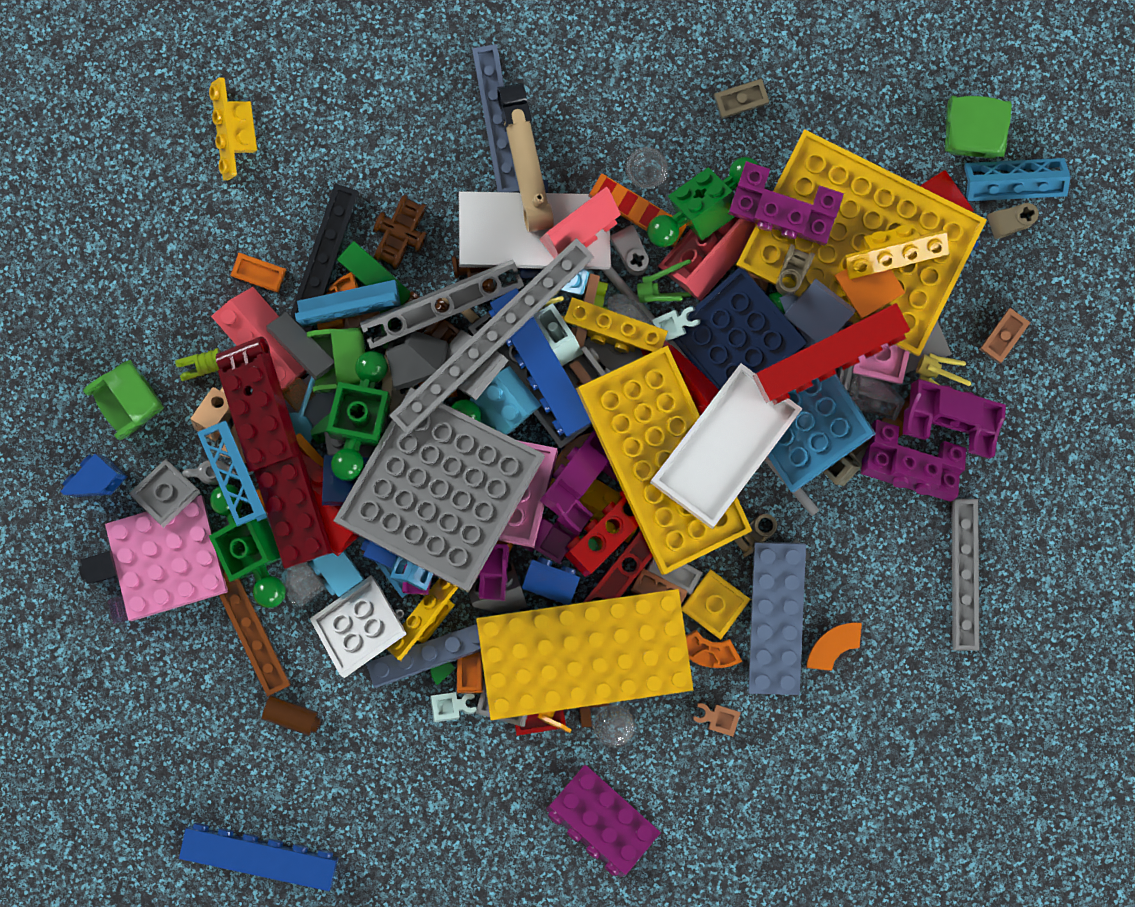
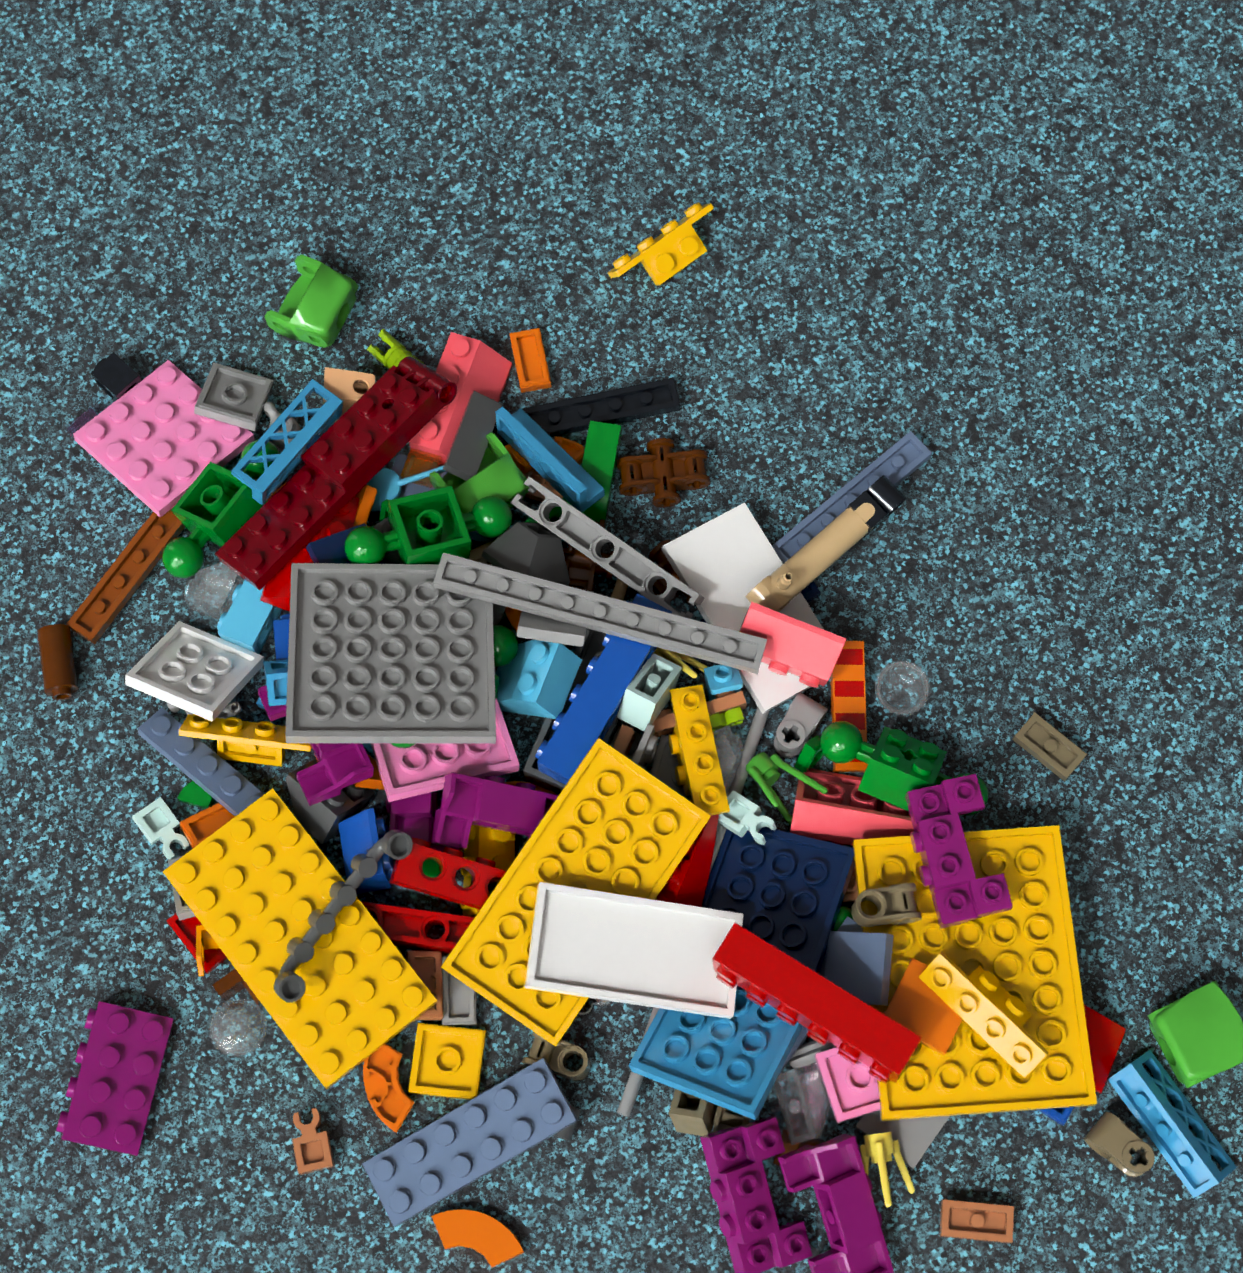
camera: 65 degrees right, 15 degrees down
(95, 478) = (210, 318): blue slope -> none
(569, 586) = (290, 985): none -> dark grey bar
(656, 256) = (810, 755): none -> green tile

